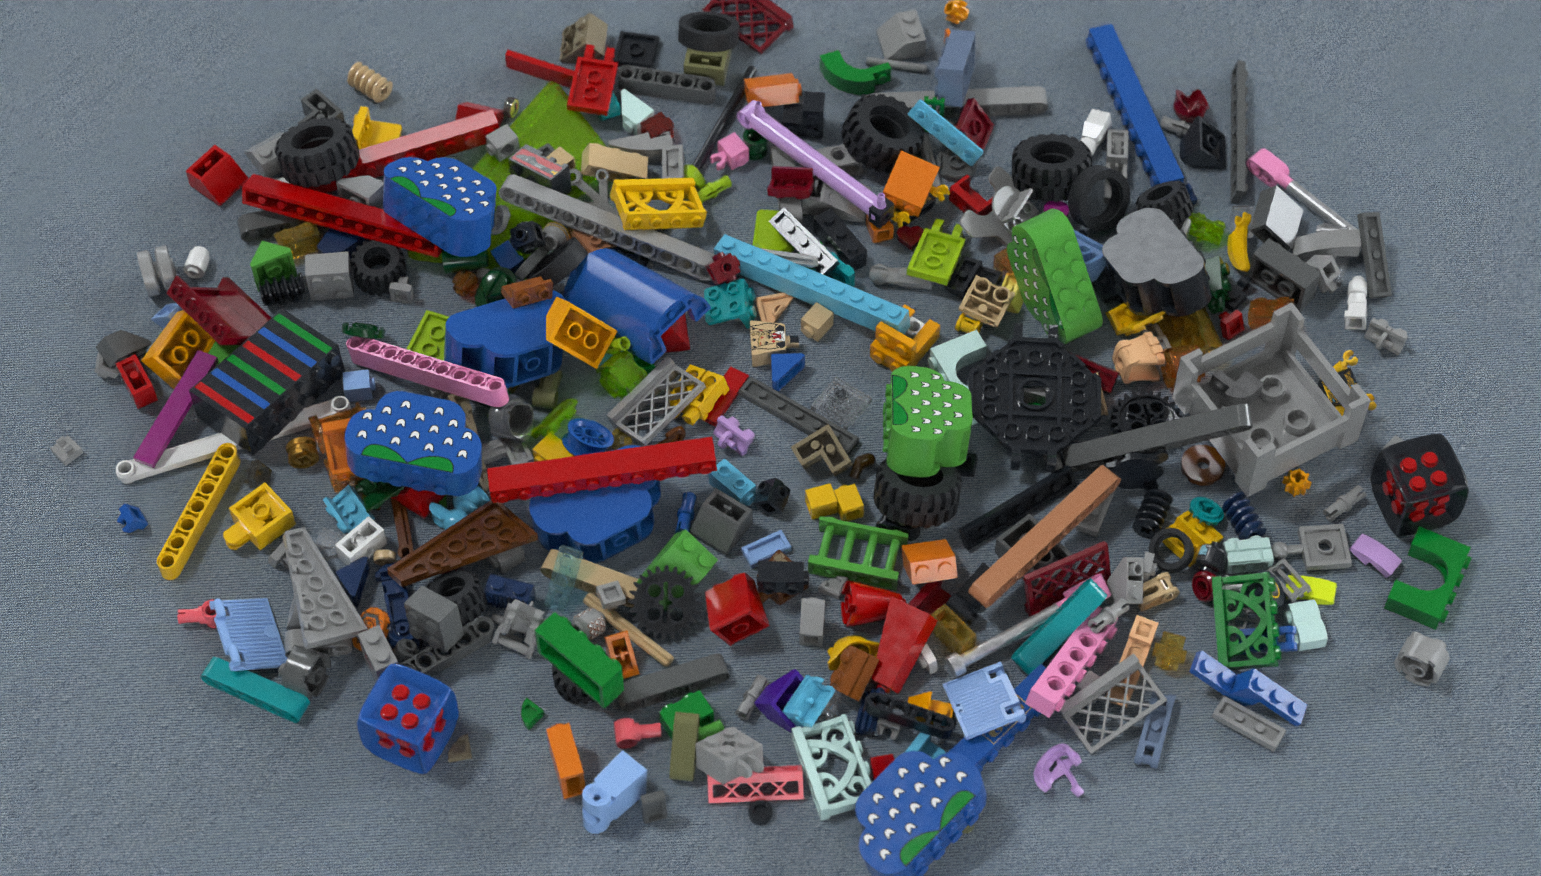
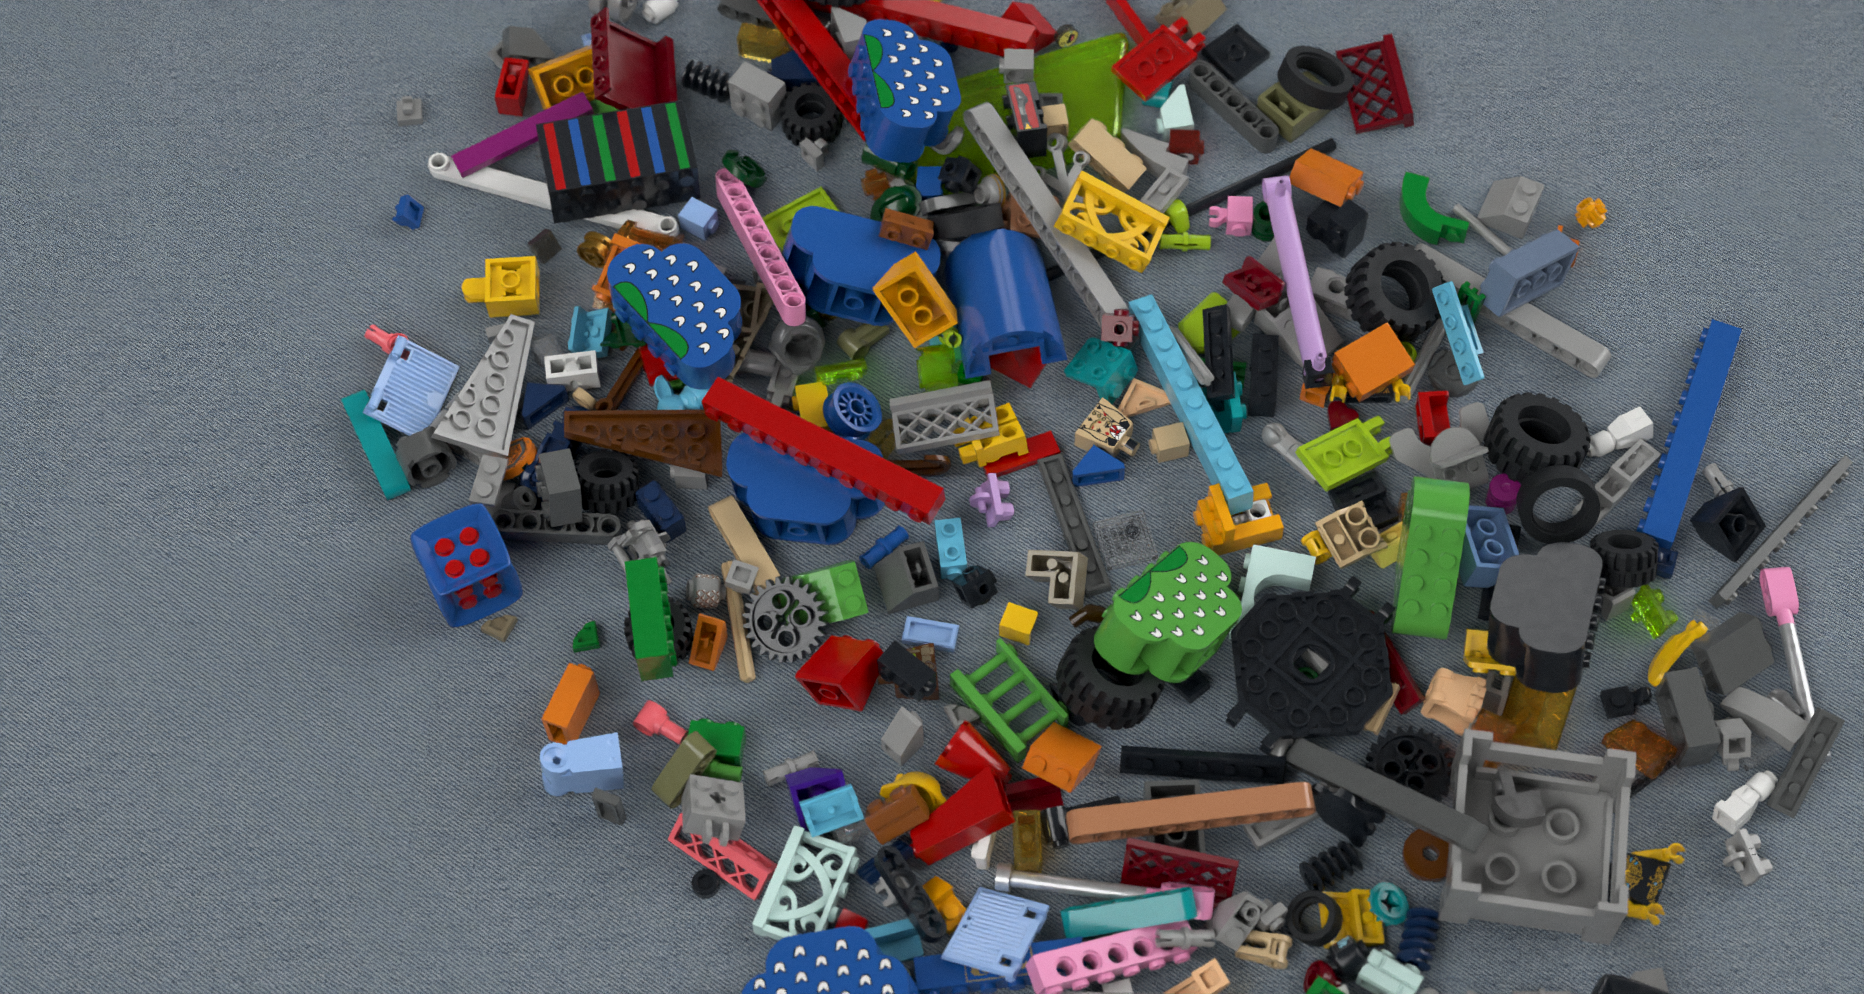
camera: 40 degrees right, 5 degrees up
(198, 520) = (459, 252): yellow beam -> none
(271, 262) = (715, 49): bright green slope -> none
(563, 576) = (717, 529): clear light blue hinge -> none
(673, 682) = (731, 700): dark grey beam -> none
(849, 503) = (1043, 643): yellow brick -> none
(975, 123) = (1500, 346): dark red tile -> none
(1190, 106) = (1751, 472): dark red helmet -> none
(1219, 283) = (1607, 674): dark green hinge -> none
(1231, 324) = (1588, 730): red tile -> none
(1296, 482) = (1509, 949): light orange gear -> none

